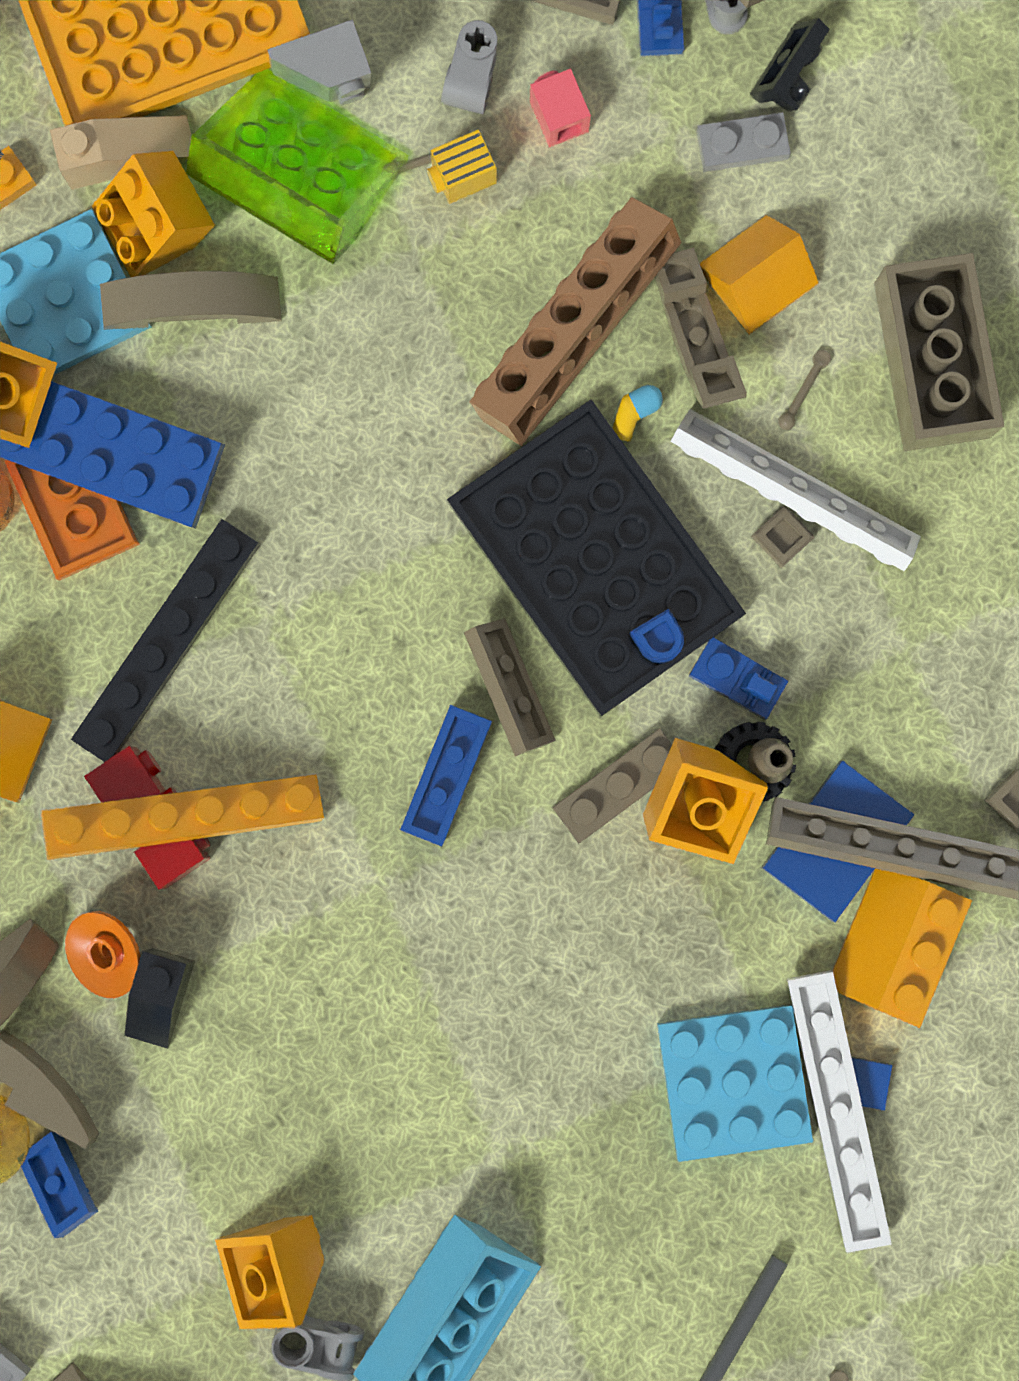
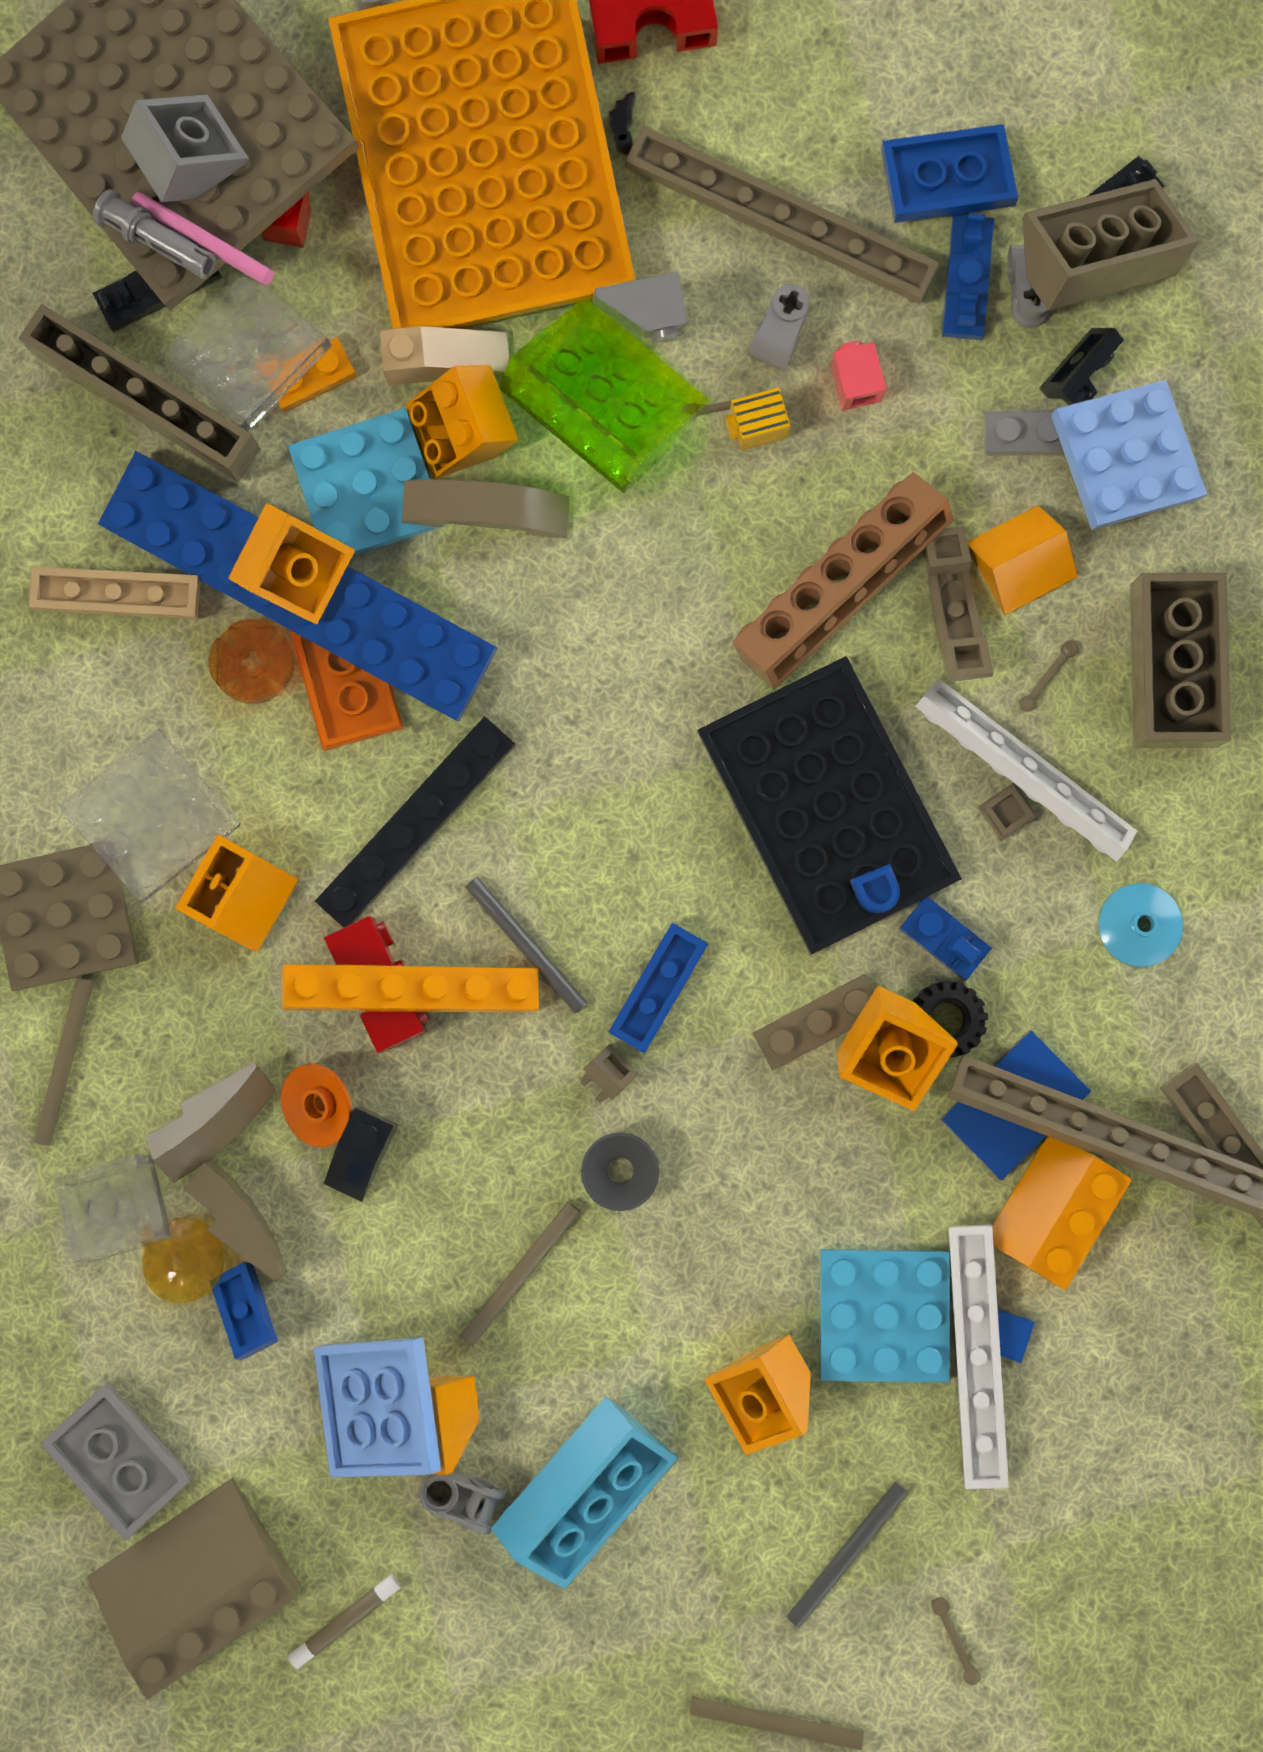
camera: 15 degrees right, 0 degrees up
(213, 1266) = (377, 1408): none -> light blue plate
(301, 751) = (526, 944): none -> dark grey bar
(345, 1099) = (519, 1274): none -> dark tan bar
(407, 872) = (609, 1072): none -> dark tan tile
(431, 1000) = (620, 1195): none -> dark grey piece
(509, 686) = (729, 914): dark tan plate -> none
(621, 1186) = (764, 1395): none -> light orange slope
(635, 407) = (886, 669): arm -> none
(760, 762) = (954, 1024): dark tan cone -> none
(852, 148) = (1128, 454): none -> light blue plate
(918, 639) = (1120, 929): none -> medium azure dish

